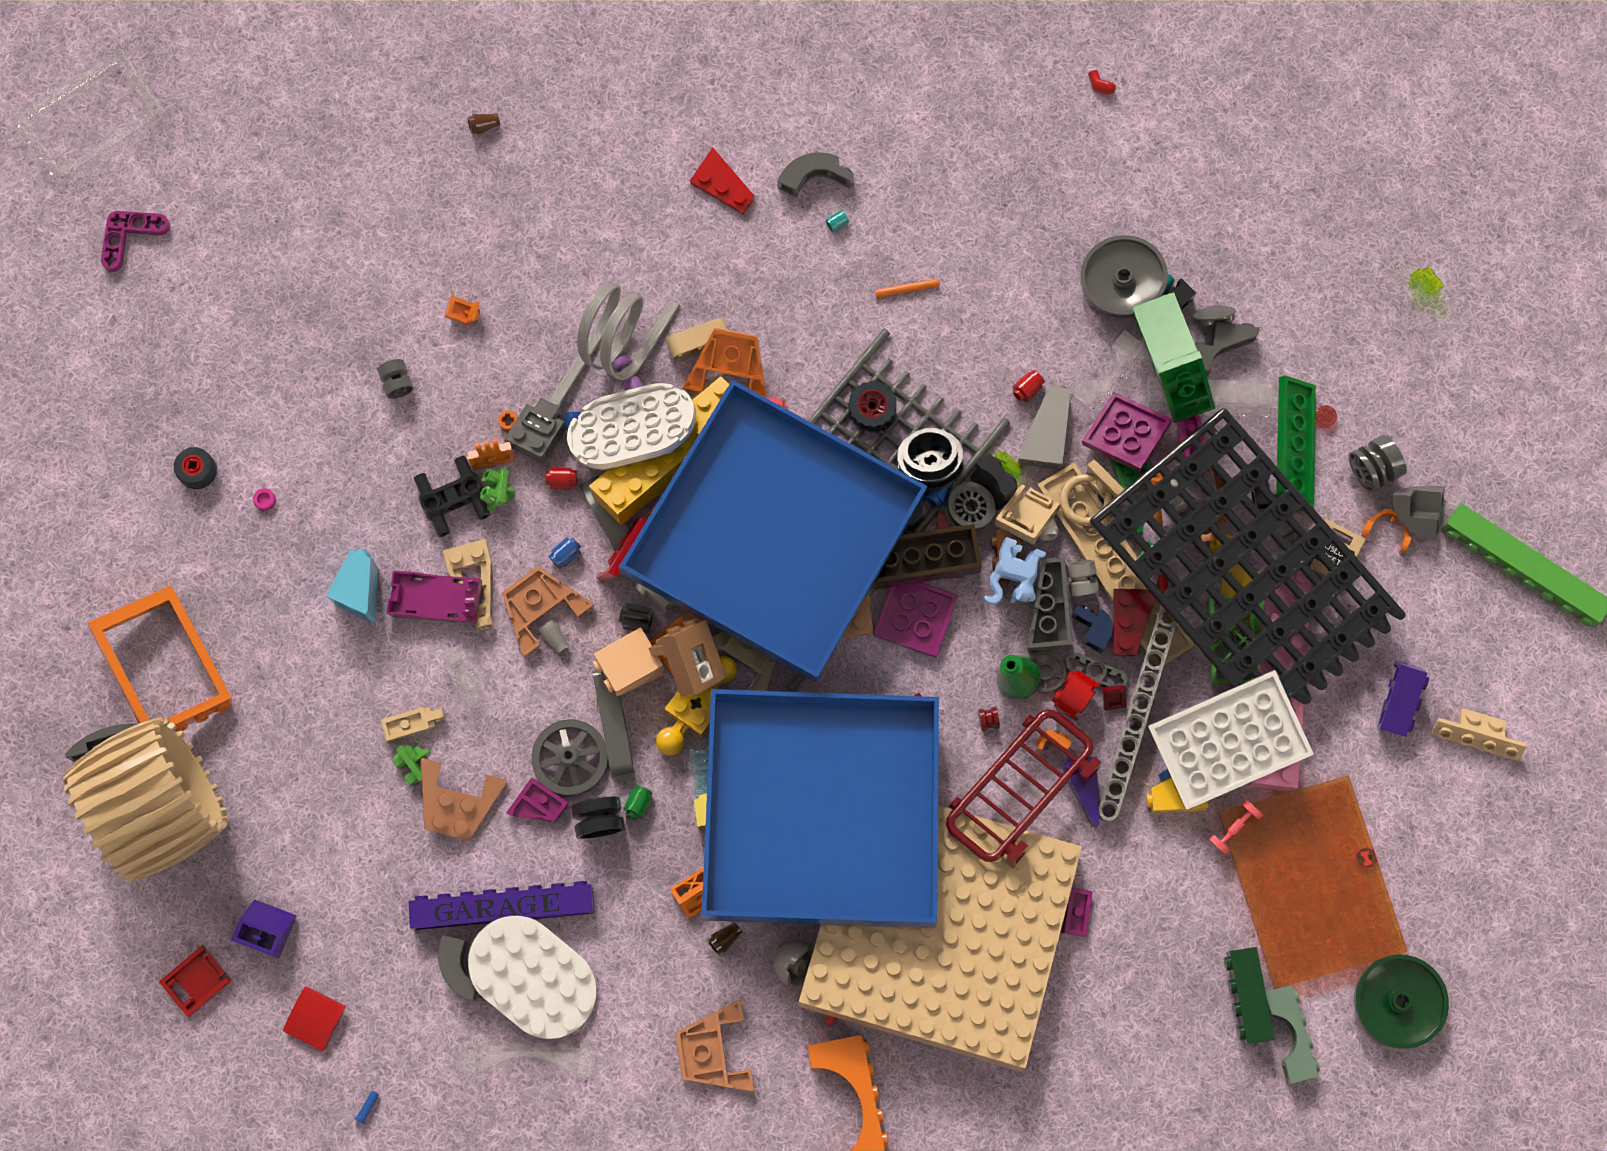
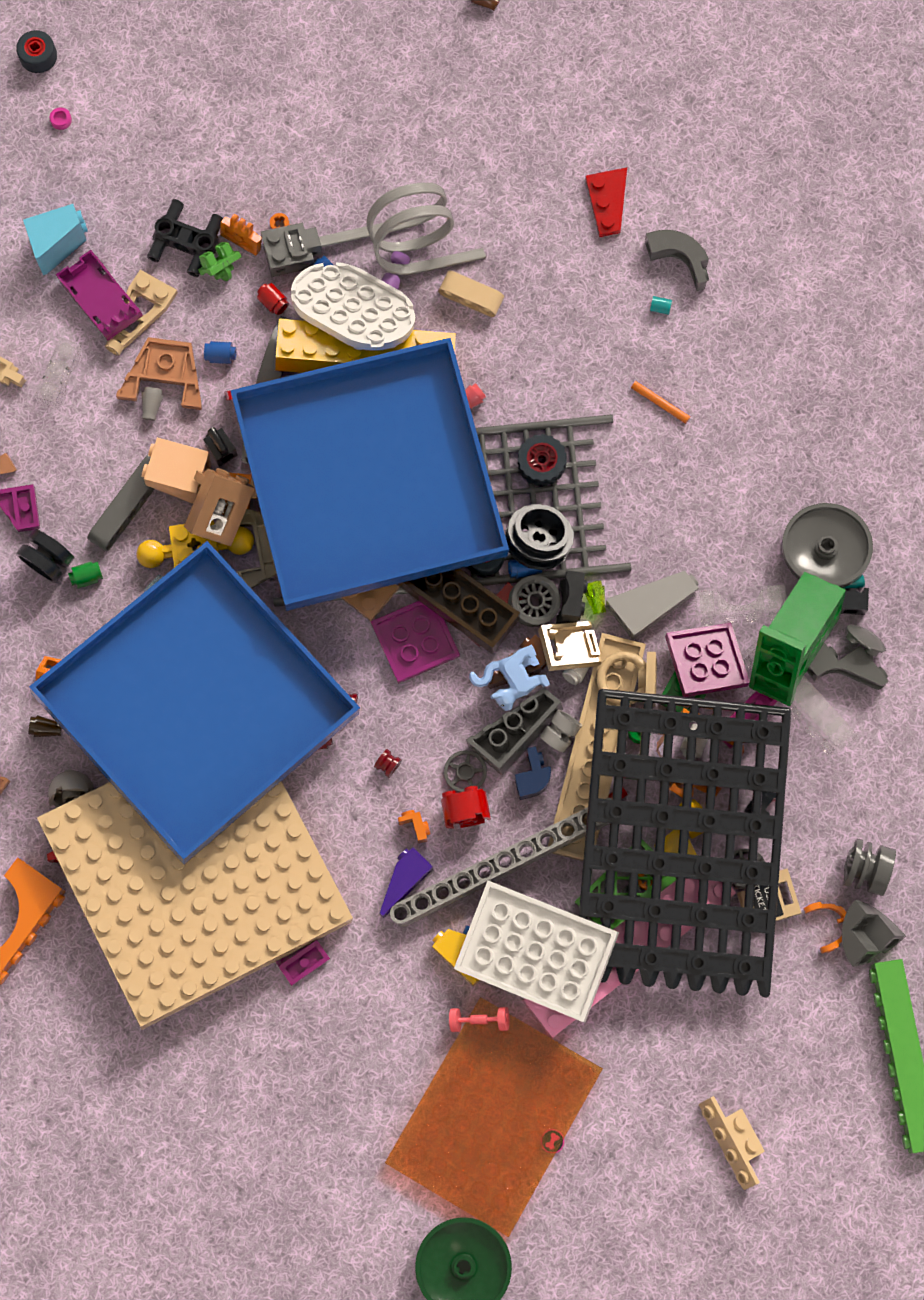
camera: 45 degrees right, 0 degrees up
(395, 378) = (234, 115): dark grey wheel -> none
(462, 311) = (328, 115): orange bracket -> none
(572, 763) = (75, 501): dark grey wheel -> none
(729, 354) = (480, 326): orange wing -> none
(1008, 847) = (298, 872): dark red bar -> none
(1018, 676) = (440, 753): green cone -> none
(1028, 386) = (671, 557): red brick -> none
(1104, 667) = (512, 822): dark grey beam -> none
(1114, 697) = (493, 839): dark red tile -> none
(1130, 619) = (562, 795): dark red wing -> none
(1250, 996) = (359, 1148): dark green brick -> none
(1296, 435) = (829, 789): green plate -> none
(1299, 1063) = (343, 1232): sand green arch -> none
(1325, 416) = (871, 796): clear red tile -> none
(1403, 699) = (702, 1055): dark purple wedge -> none

